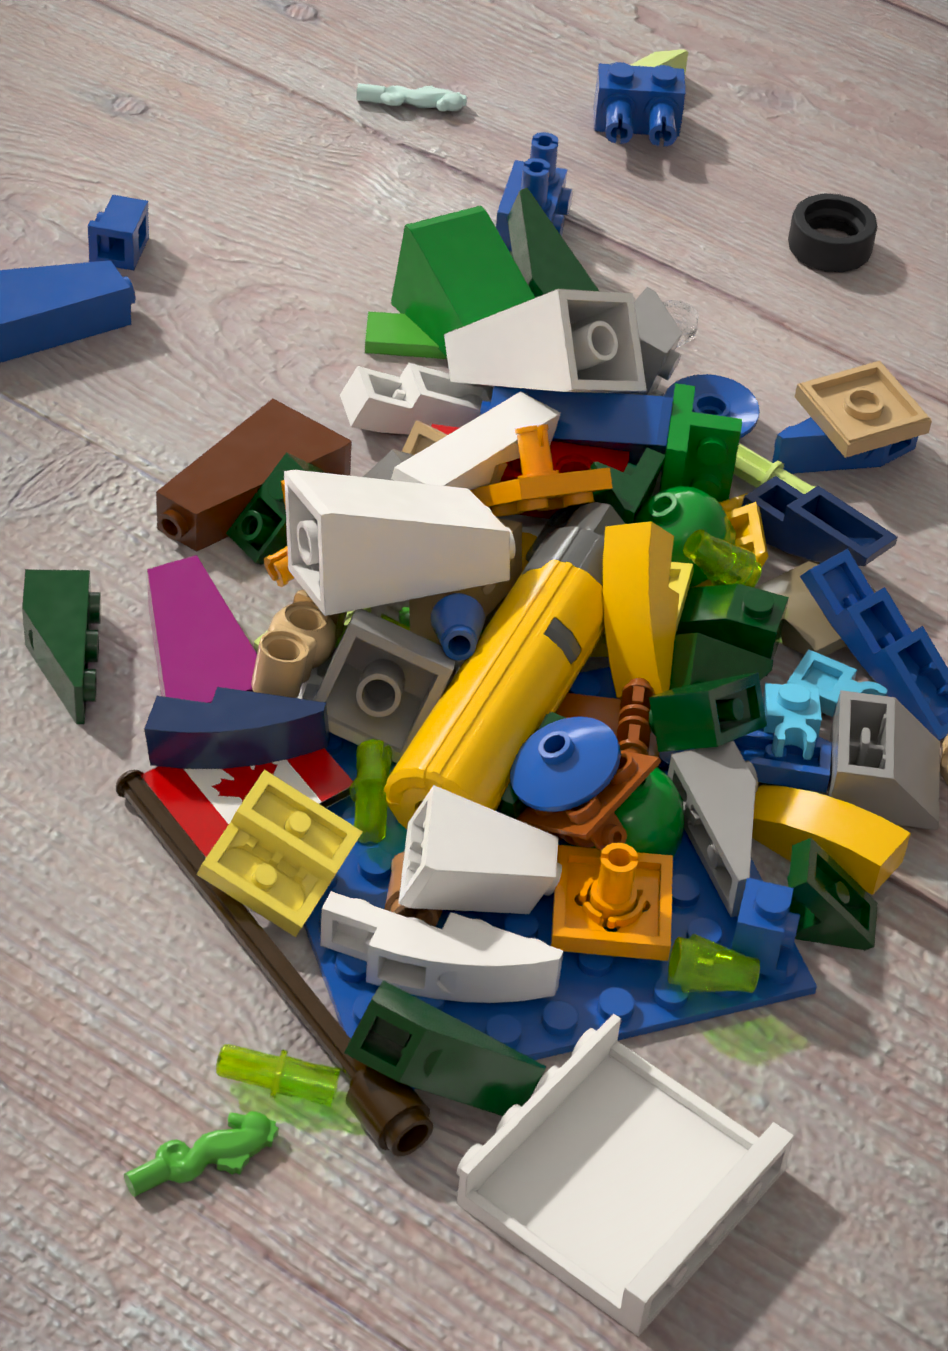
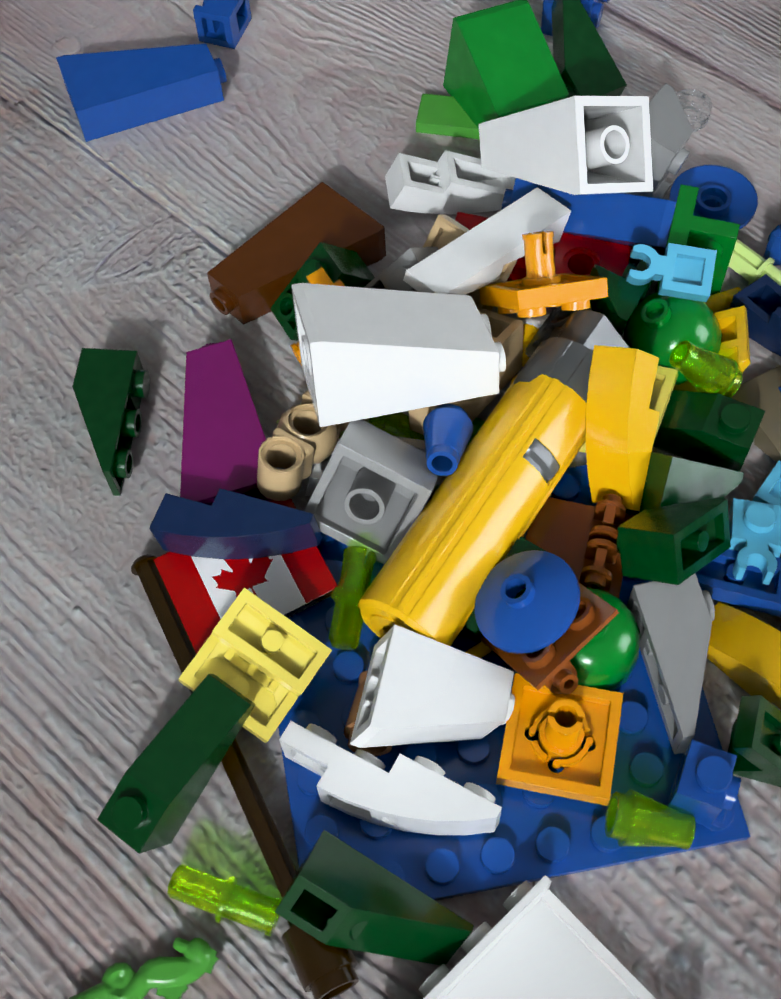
camera: 15 degrees right, 15 degrees up
(212, 946) = (176, 767): none -> dark green slope
(686, 462) = (682, 271): none -> medium azure plate

